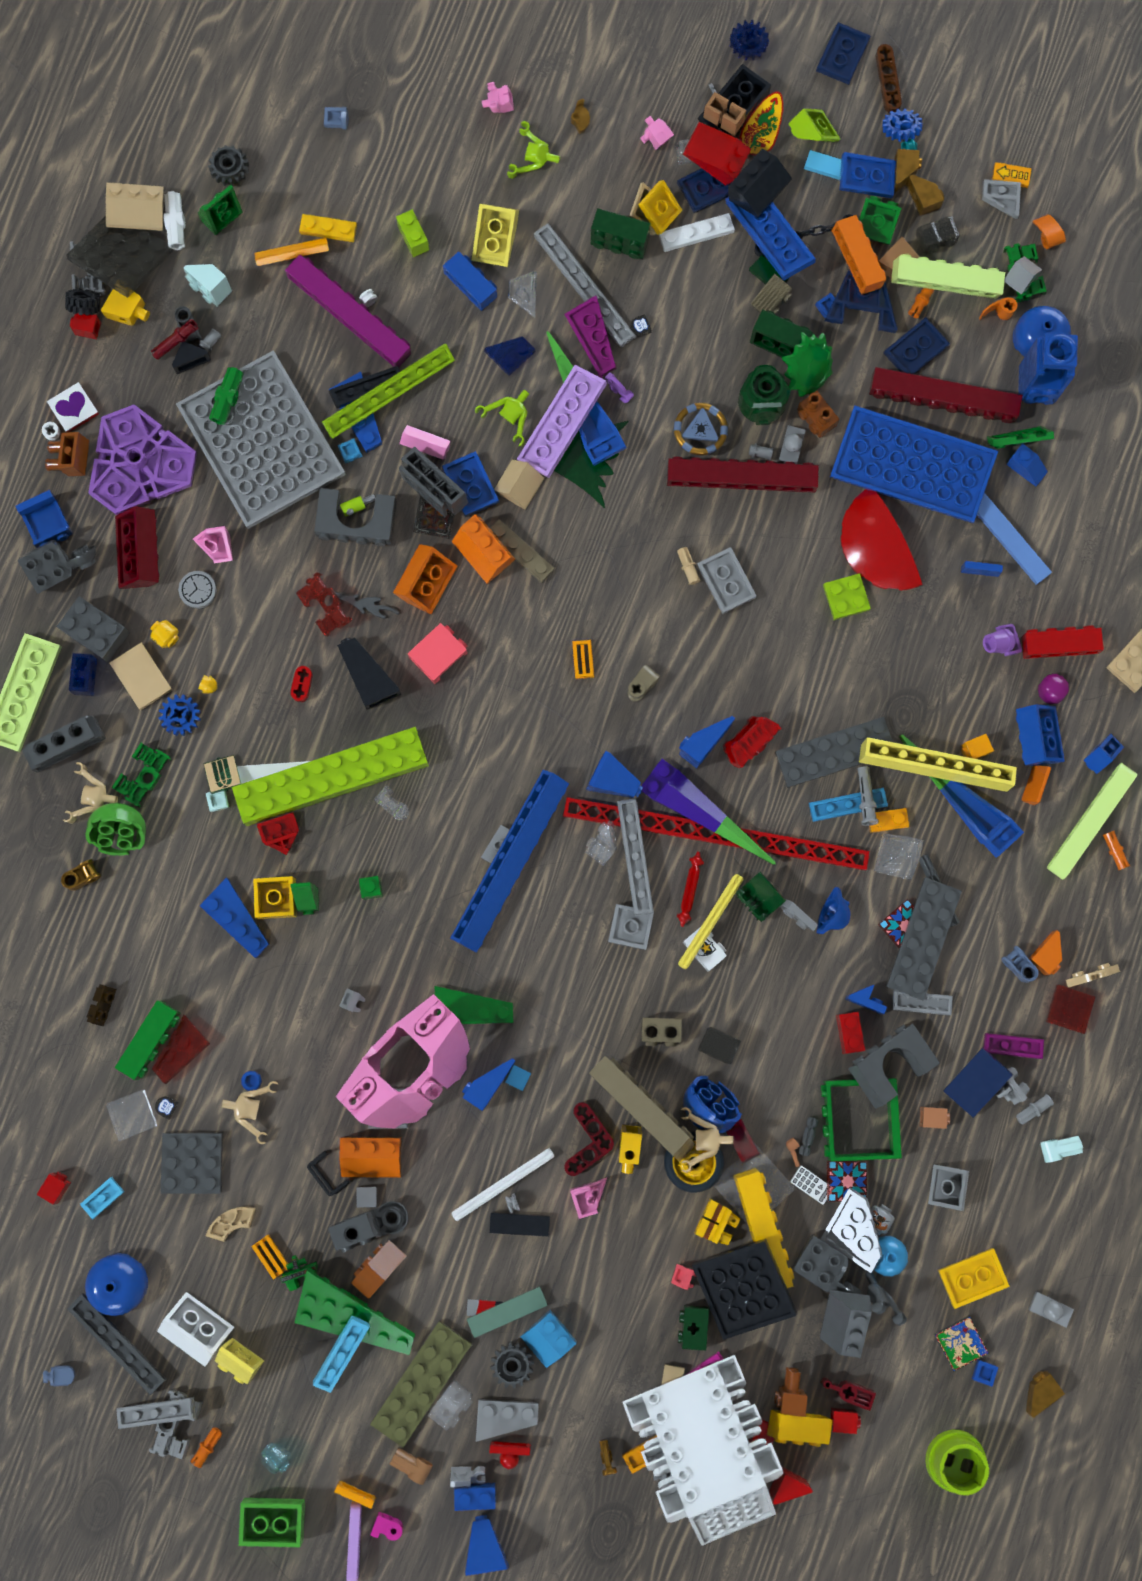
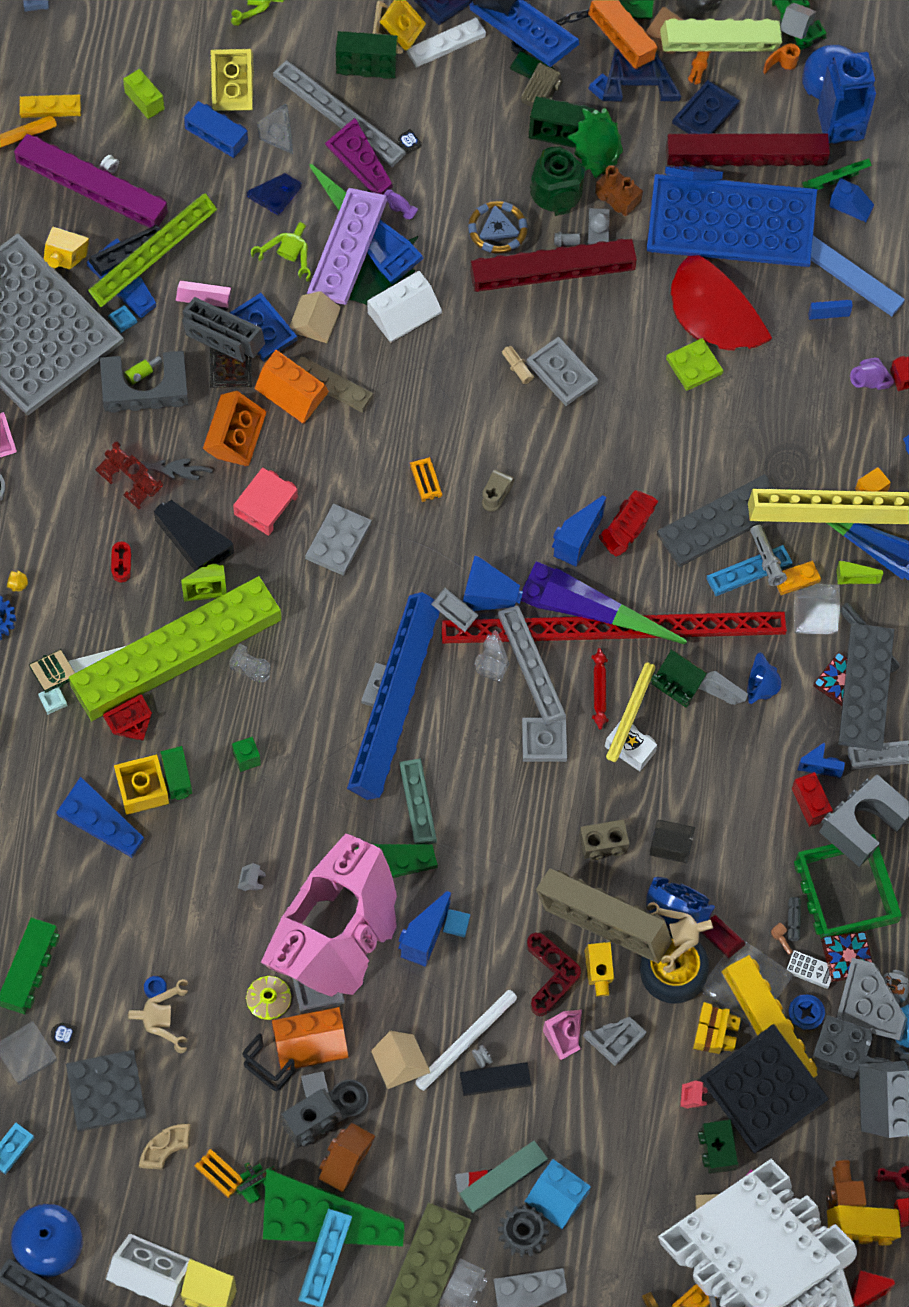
camera: 15 degrees left, 15 degrees down
(181, 1050) = (69, 967): clear red wing -> none
(310, 374) = (65, 248): none -> yellow torso
(336, 1117) = (272, 1007): none -> tan dish
(369, 720) = (204, 583): none -> lime slope
(442, 1191) = (399, 1059): none -> tan slope
(494, 701) = (338, 539): none -> light grey plate
(509, 960) = (417, 802): none -> sand green tile
(579, 793) = (454, 609): none -> light grey tile
(600, 490) = (404, 306): none -> white slope
(629, 1212) = (616, 1039): none -> light grey wing
(808, 1223) = (804, 1002): none -> blue gear
(889, 411) = (693, 173): none -> blue tile
(938, 828) = (857, 574): none -> lime slope

